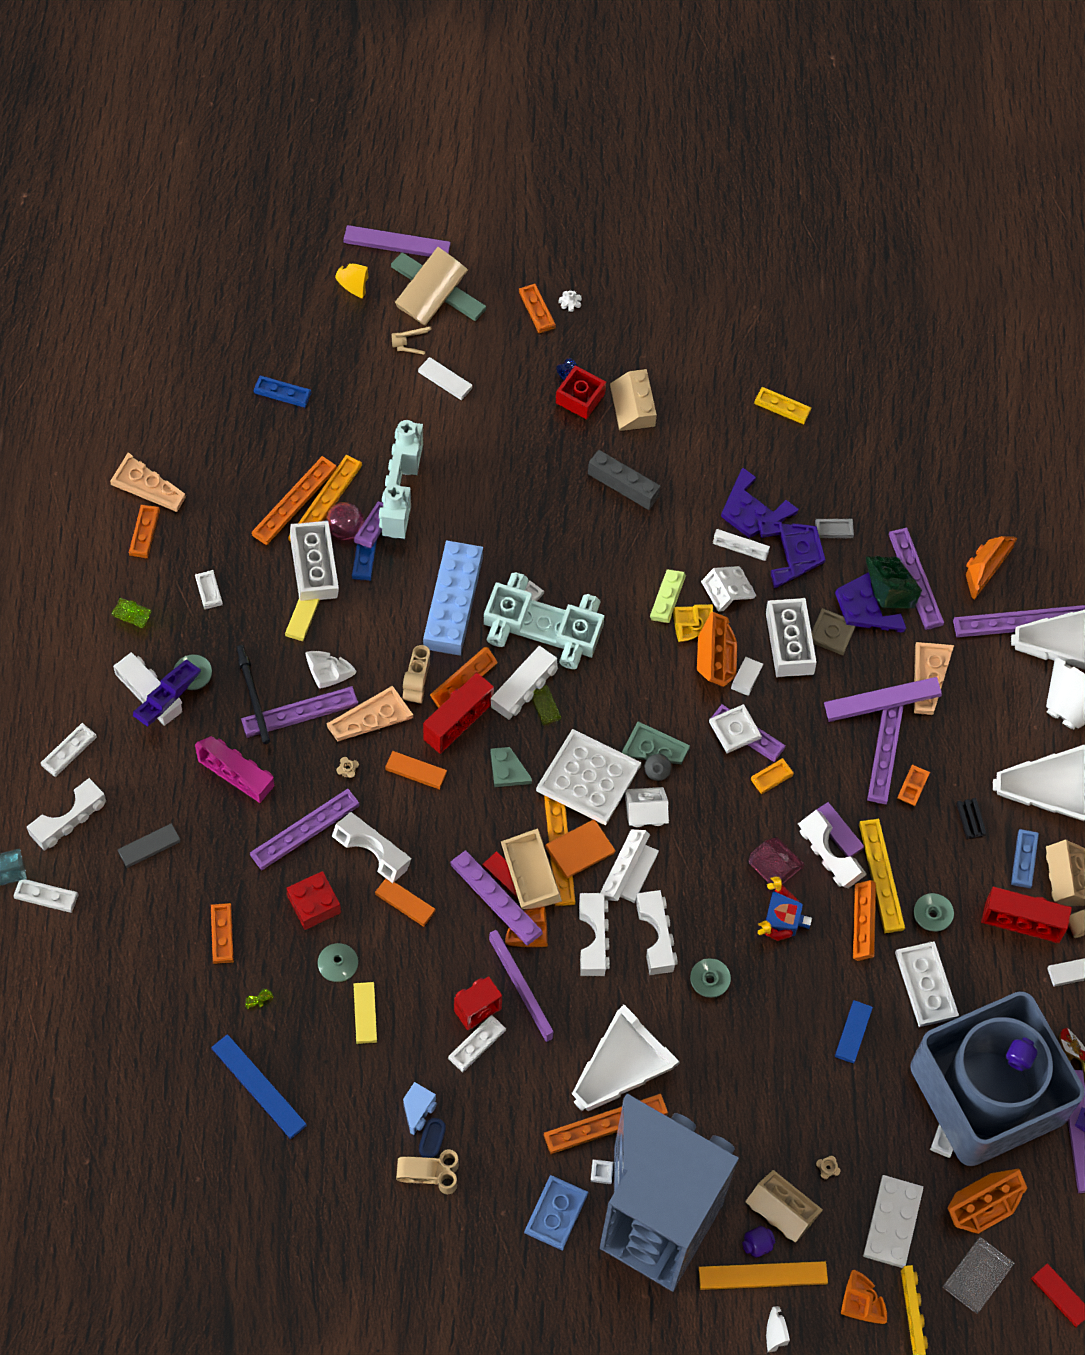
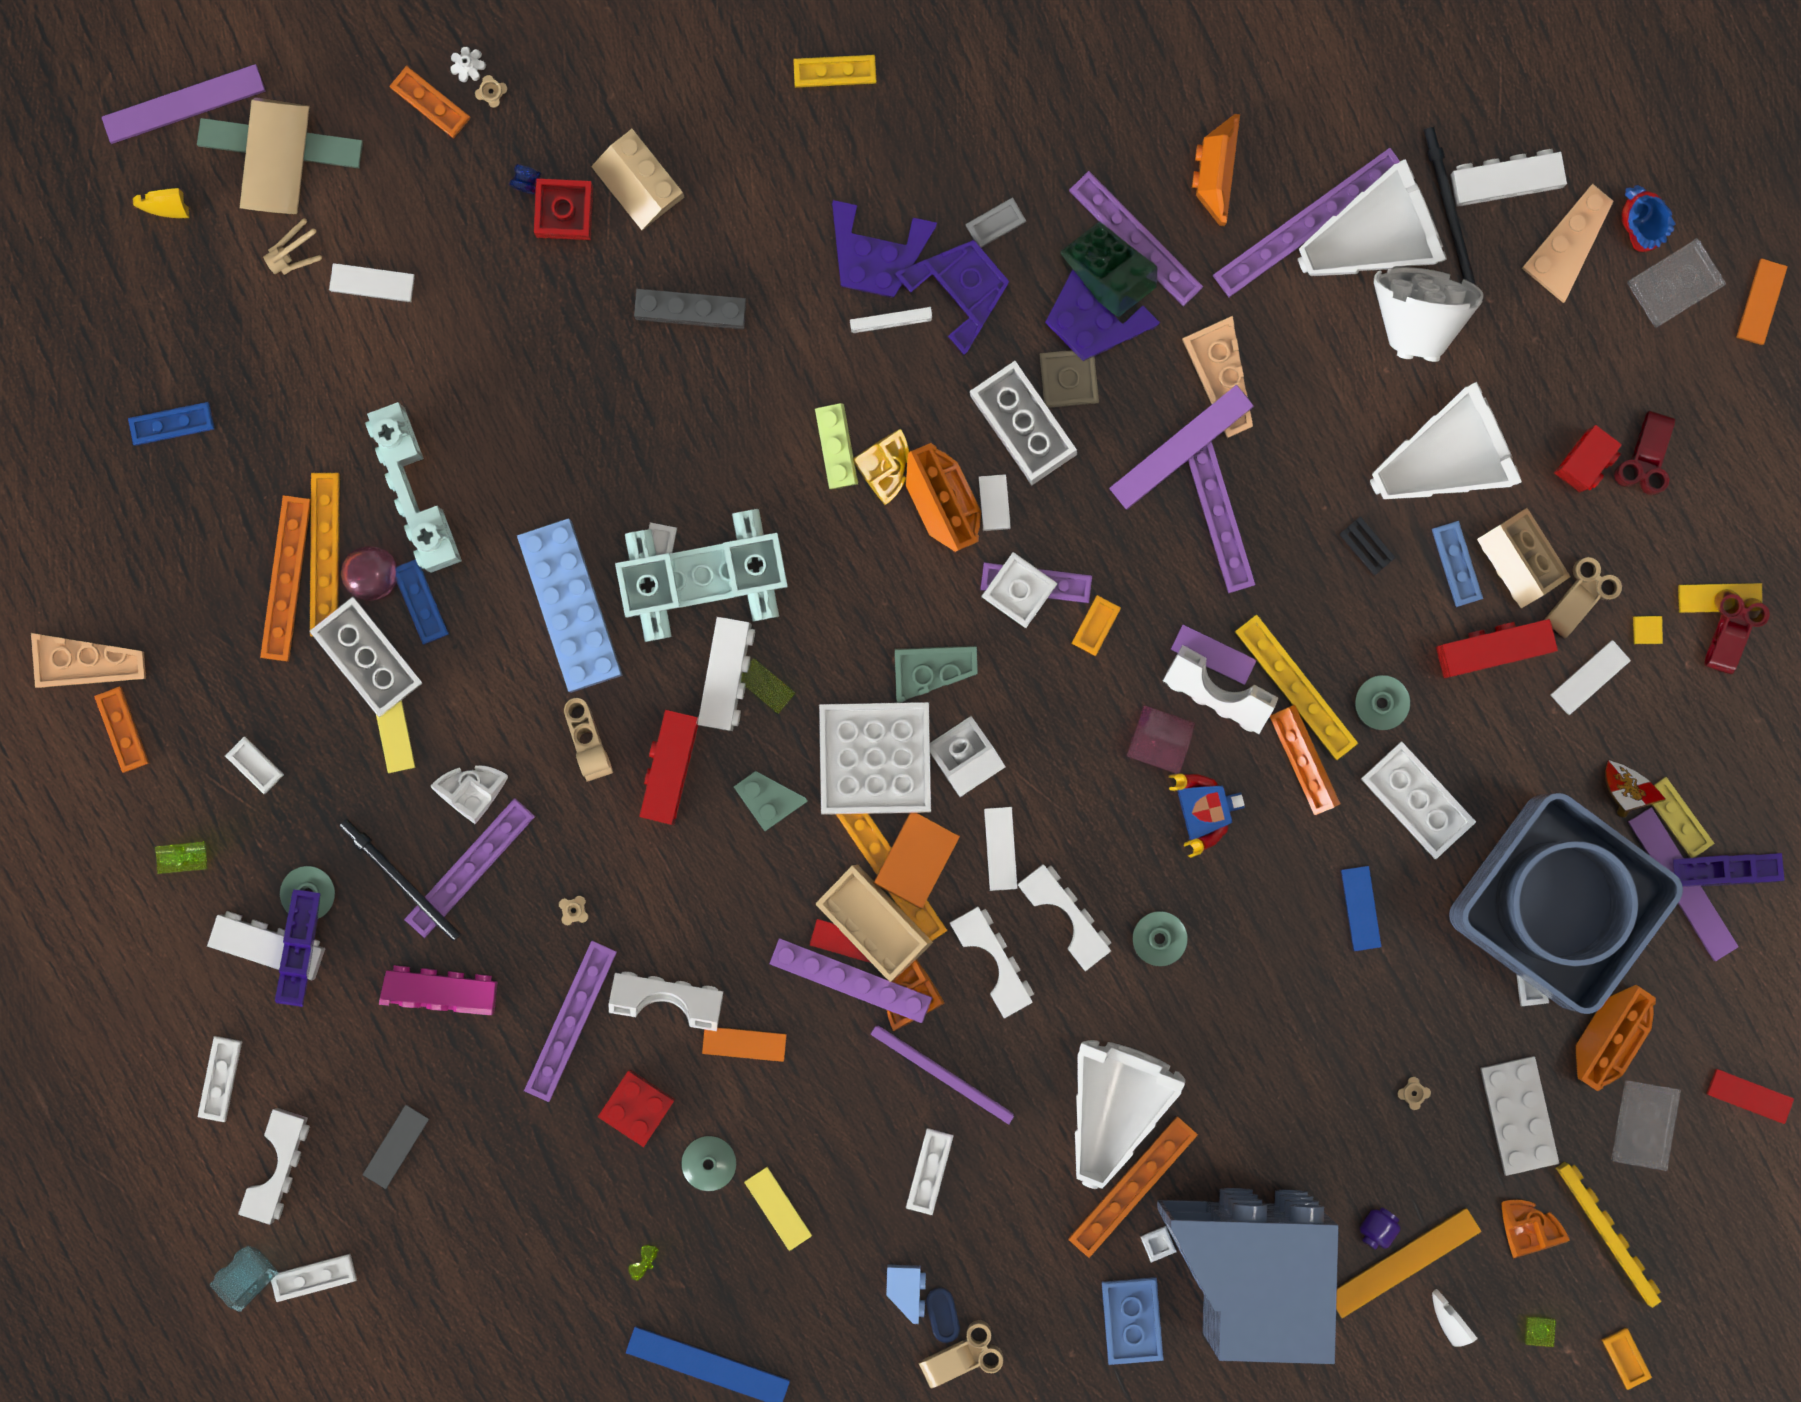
camera: 25 degrees left, 25 degrees up
(222, 933) = (551, 1206): orange tile -> none
(370, 529) = (409, 576): medium lavender tile -> none
(377, 712) = (564, 820): light nougat wing -> none
(416, 770) = (658, 865): orange tile -> none
(477, 1002) = (906, 1129): red brick -> none
(480, 663) = (646, 710): orange plate -> none
(575, 314) = (483, 92): none -> tan plate
(624, 864) = (980, 850): white plate -> none
(658, 767) = (951, 696): dark grey brick -> none
(727, 585) = (906, 389): white bracket -> none
(783, 1206) = (1387, 1169): tan slope -> none
(913, 785) = (1275, 541): orange slope -> none
(1021, 1054) = (1589, 882): dark purple head -> none

